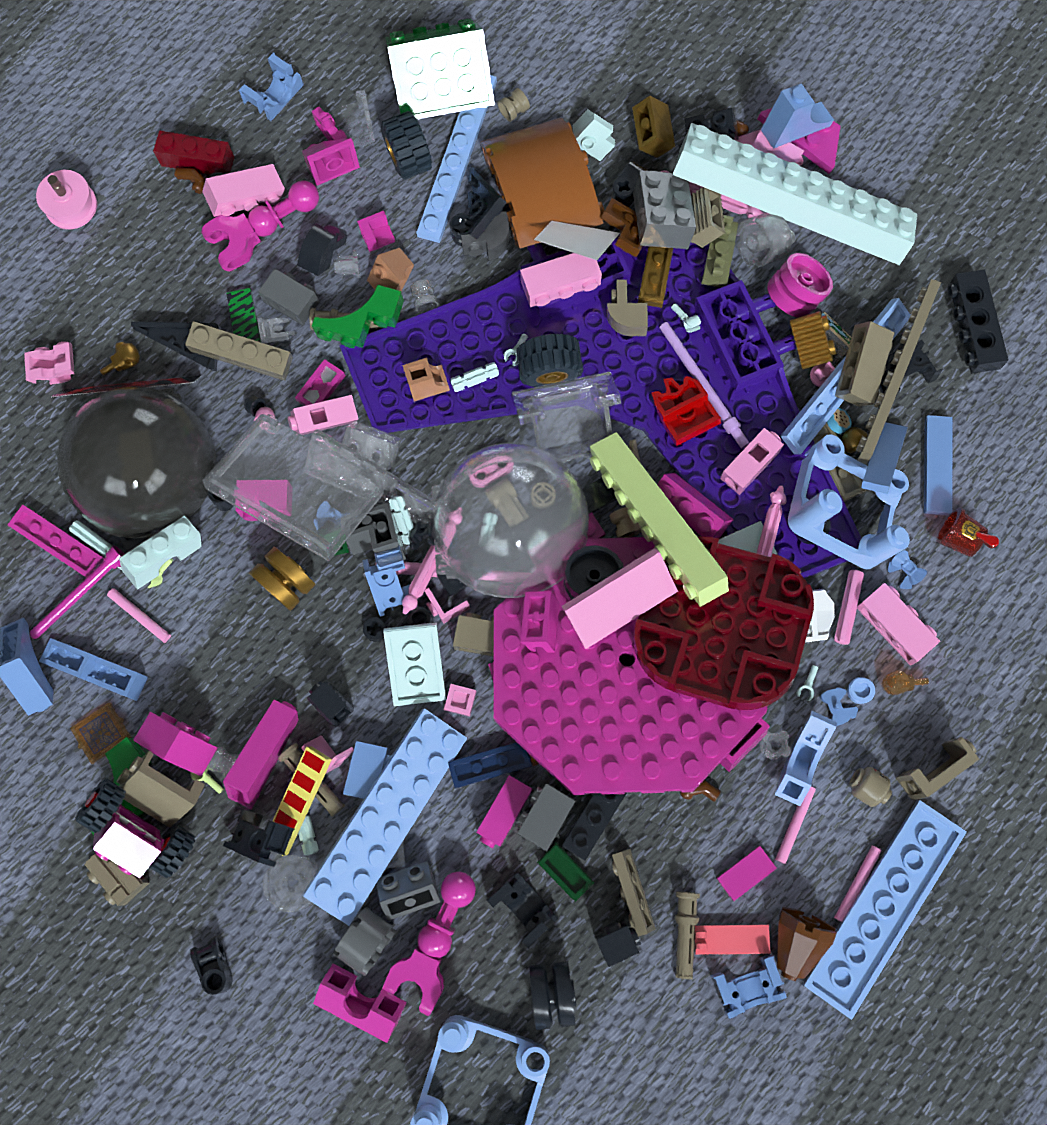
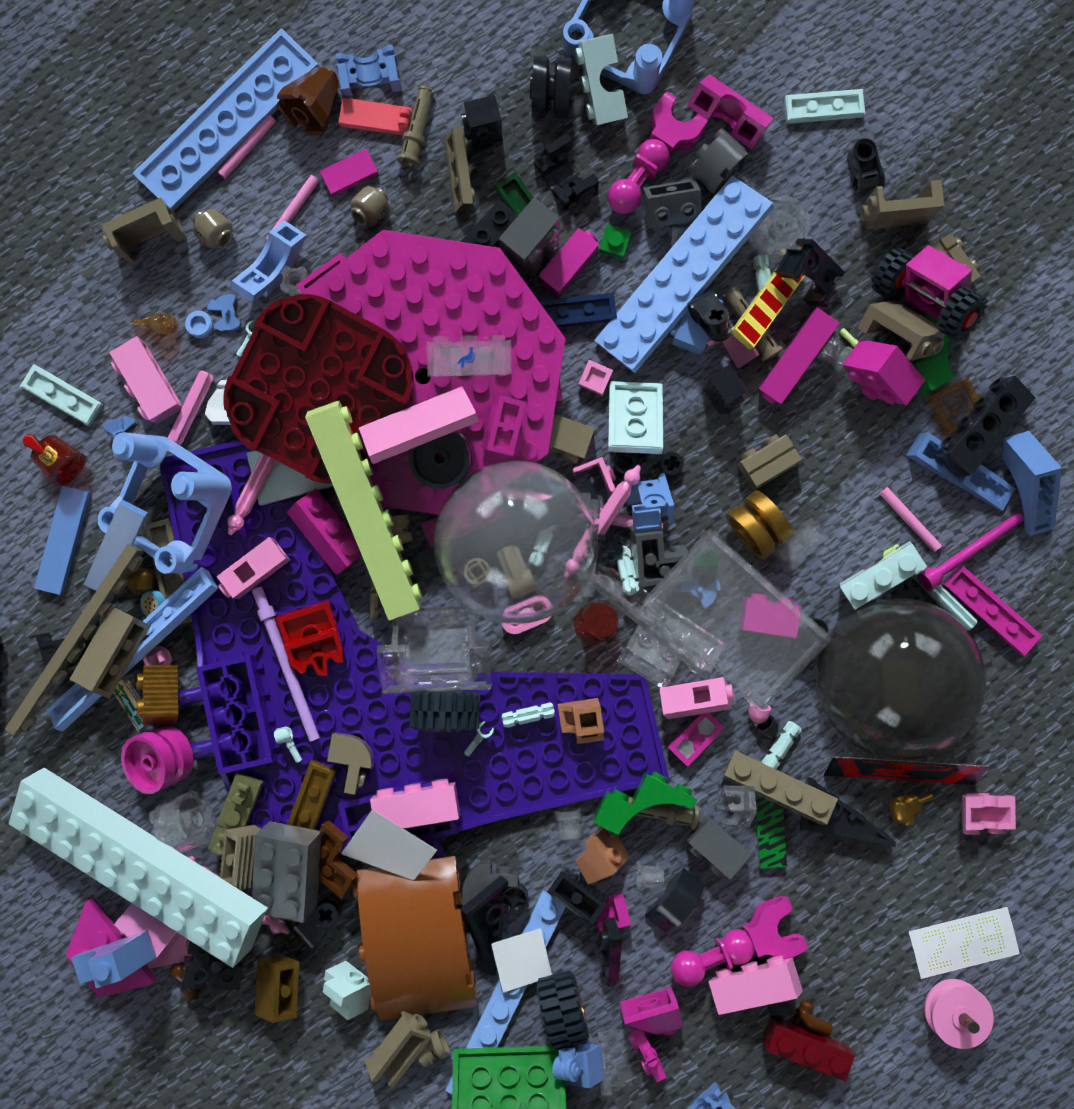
camera: 175 degrees left, 10 degrees up
(59, 717) = (997, 420): none -> black brick
(65, 259) = (964, 942): none -> white sticker
(143, 931) = (905, 212): none -> dark tan panel
(238, 579) = (805, 540): none -> clear plate
(241, 392) = (782, 745): none -> light aqua axle
(261, 1032) = (824, 106): none -> light aqua tile
(280, 645) = (769, 461): none -> dark tan brick
(354, 772) = (711, 316): none -> black piece
(372, 197) = (610, 955): none -> black hinge
(384, 104) = (580, 1065): none -> medium blue brick
(407, 236) = (578, 896): none -> black brick
(424, 470) = (596, 622): none -> clear red hat
(448, 181) = (521, 959): none -> white sticker
(461, 845) = (615, 241): none -> green plate
(509, 1035) = (594, 56): none -> light aqua arch
(540, 97) = (399, 1049): none -> dark tan window
(583, 676) = (469, 356): none -> clear brick
(717, 837) = (369, 206): none -> dark tan head
(977, 599) = (61, 395): none -> light aqua tile

